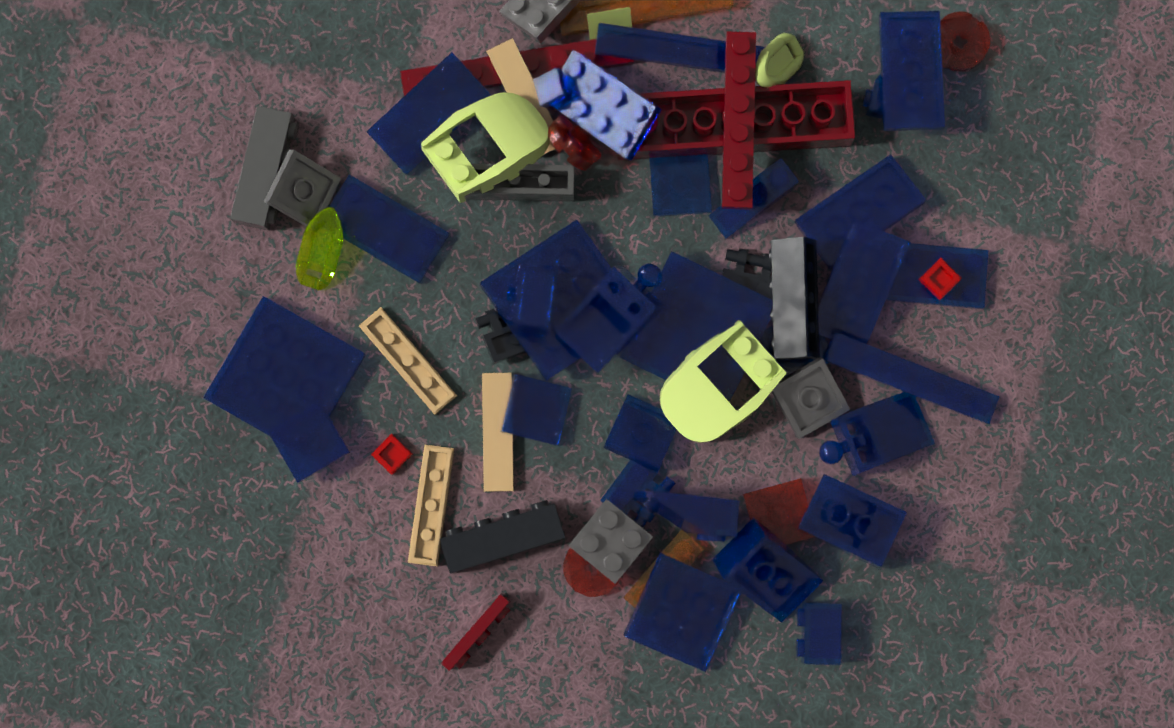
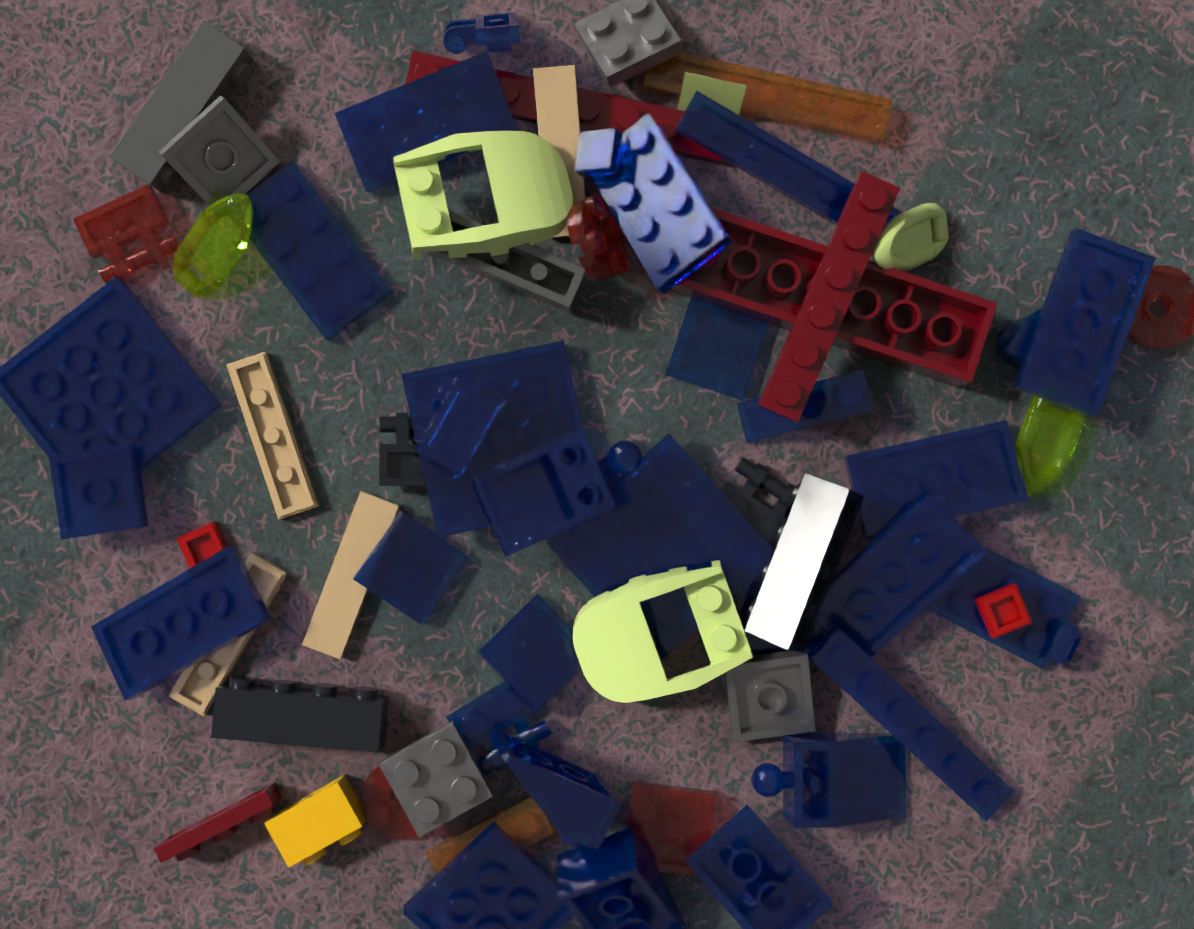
camera: 10 degrees right, 5 degrees up
(252, 260) = (122, 222): none -> clear red plate
(397, 507) = (181, 623): none -> clear blue plate
(448, 37) = (490, 30): none -> clear blue plate
(542, 604) = (316, 822): none -> yellow brick
(924, 160) = (1046, 444): none -> clear neon green piece
(991, 286) = (1065, 645): none -> clear blue tile

